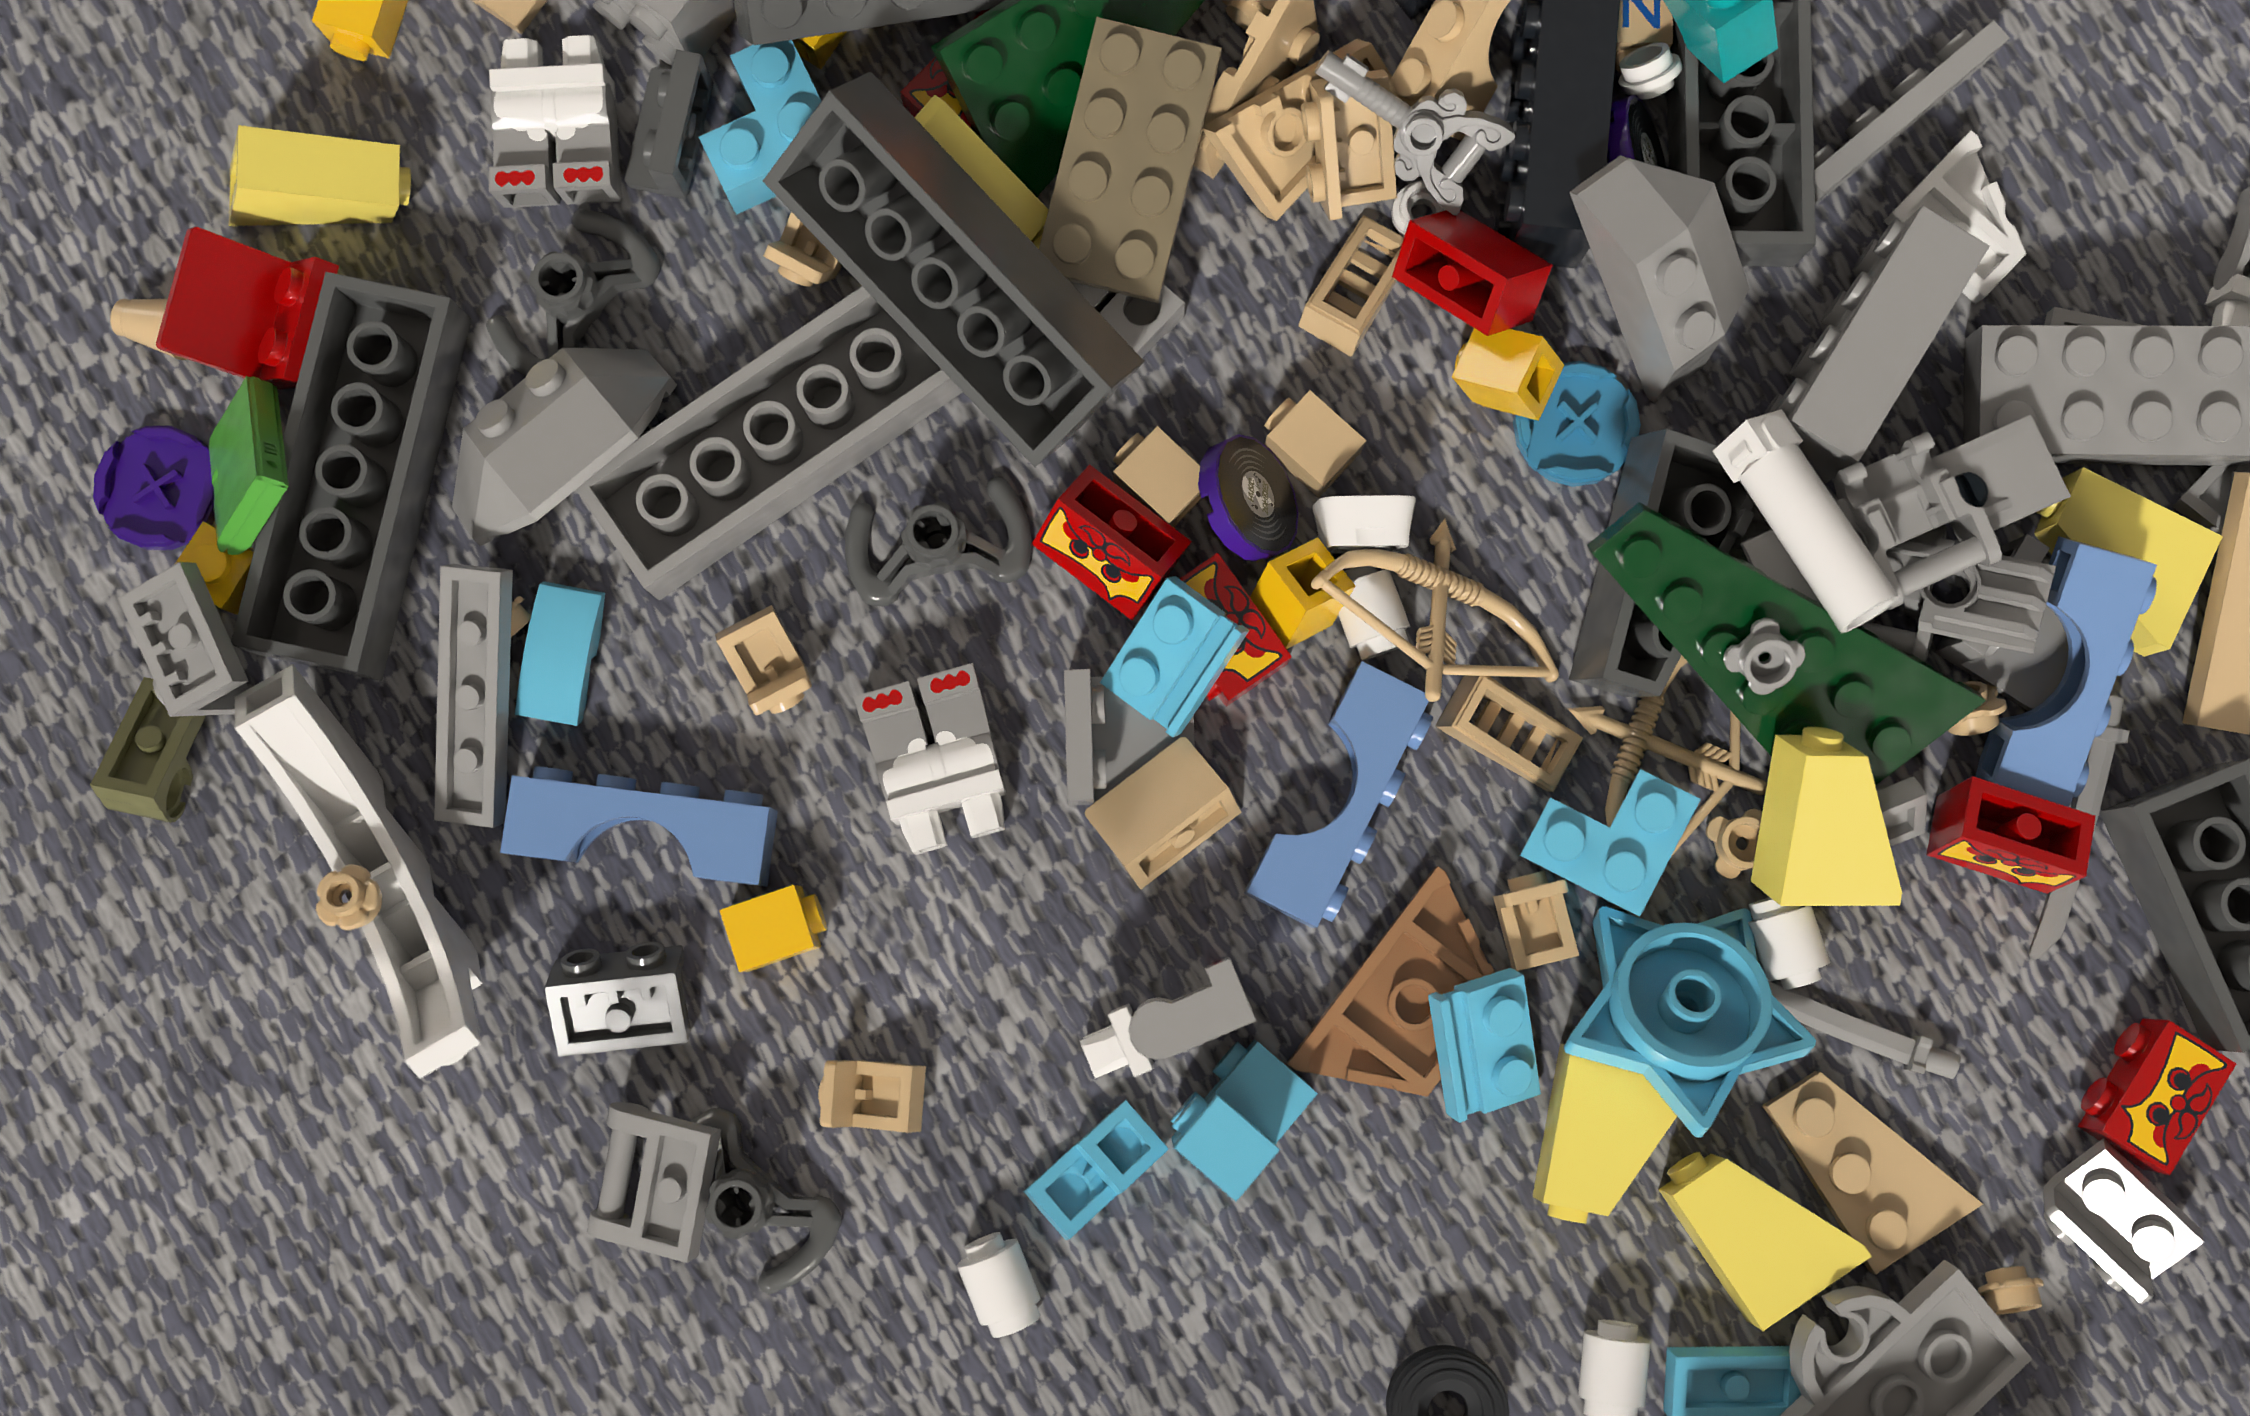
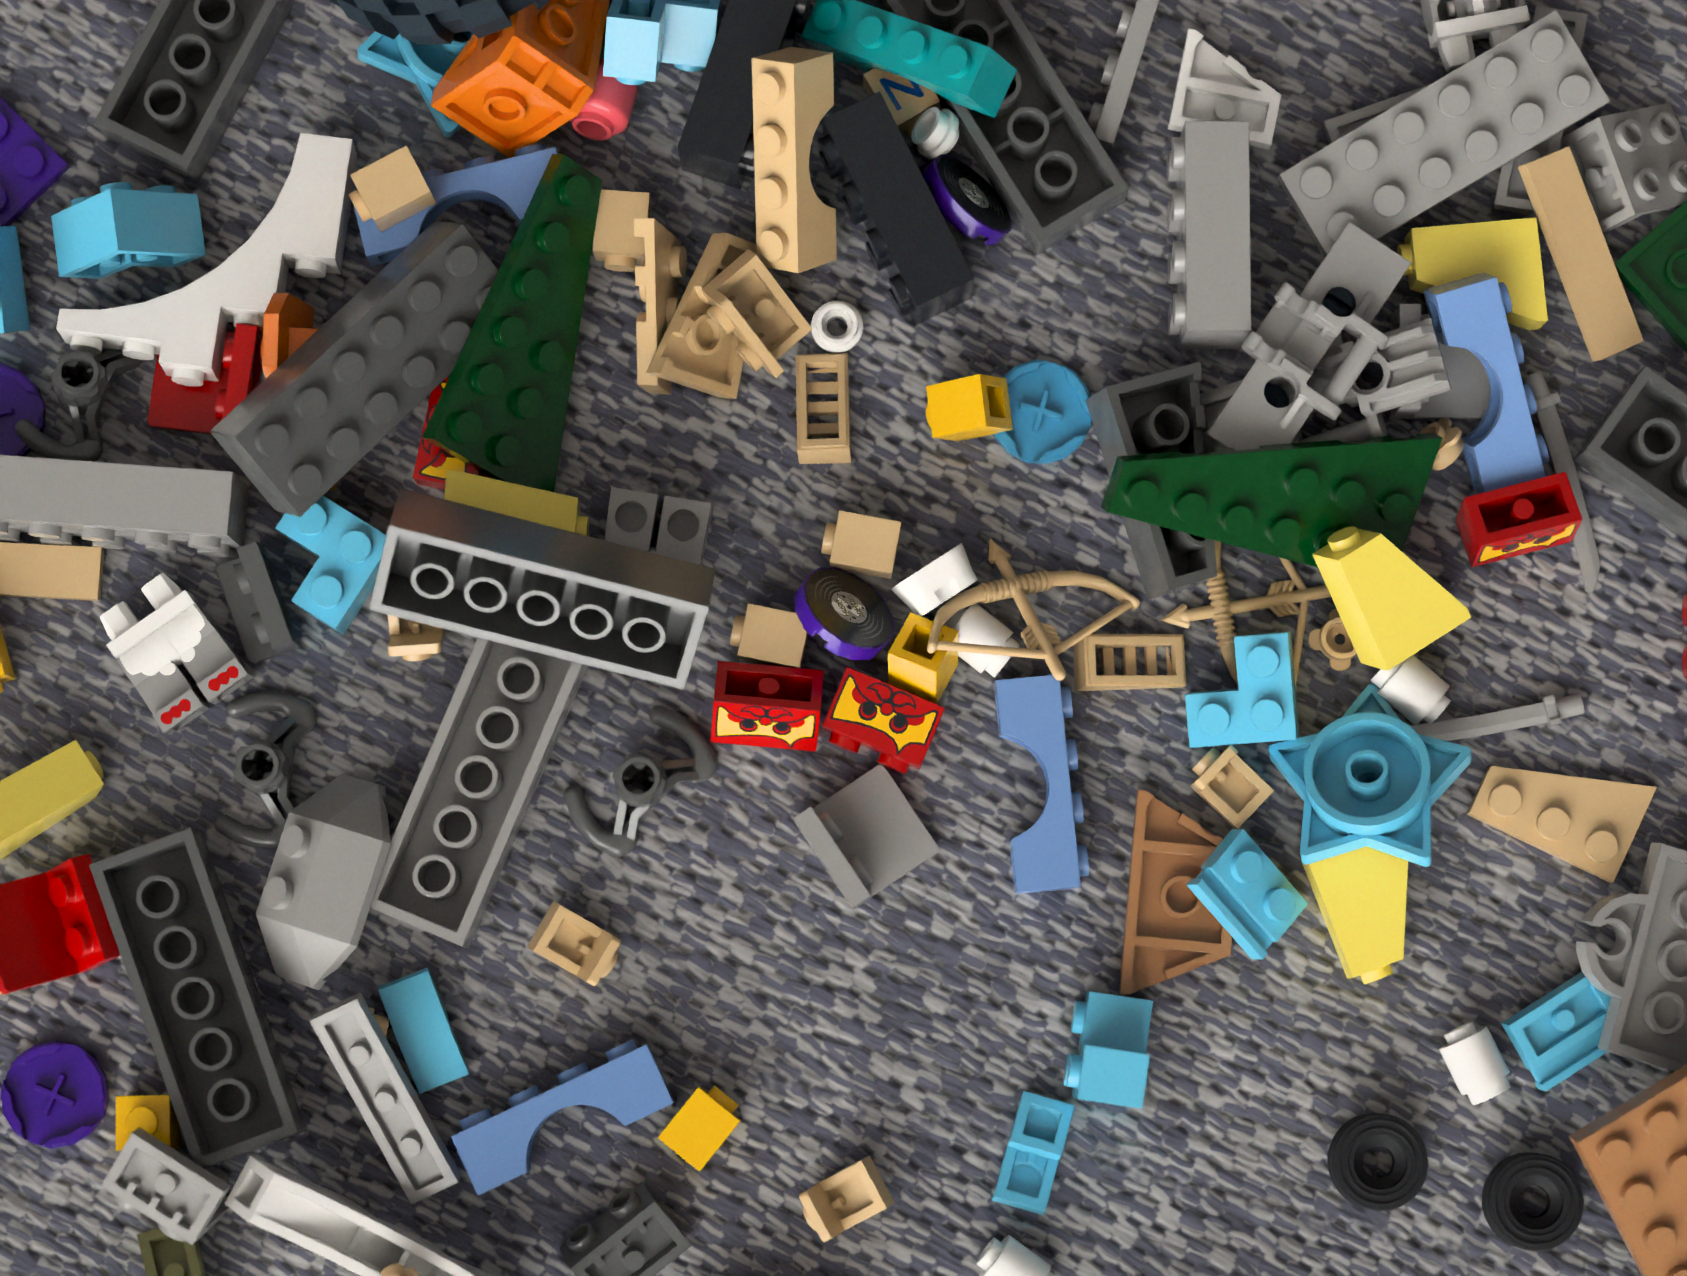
camera: 30 degrees left, 0 degrees up
(247, 465) = (120, 1036): bright green piece -> none
(939, 776) = (750, 946): hips -> none
(1128, 158) = (610, 429): dark tan plate -> none
(1163, 811) = (922, 872): tan panel -> none
(1168, 1026) = (1023, 1018): light grey hips -> none
(1174, 656) = (862, 759): medium azure plate -> none
(1421, 128) = (803, 277): light grey piece -> none
(1471, 271) = (899, 355): red brick -> none
(1663, 265) = (1032, 271): light grey wedge -> none
(1757, 1239) = (1515, 908): light yellow slope -> none
(1769, 674) = (1283, 513): light grey plate -> none
(1806, 519) = (1239, 393): white piece -> none
(1903, 809) = (1432, 550): light grey plate -> none

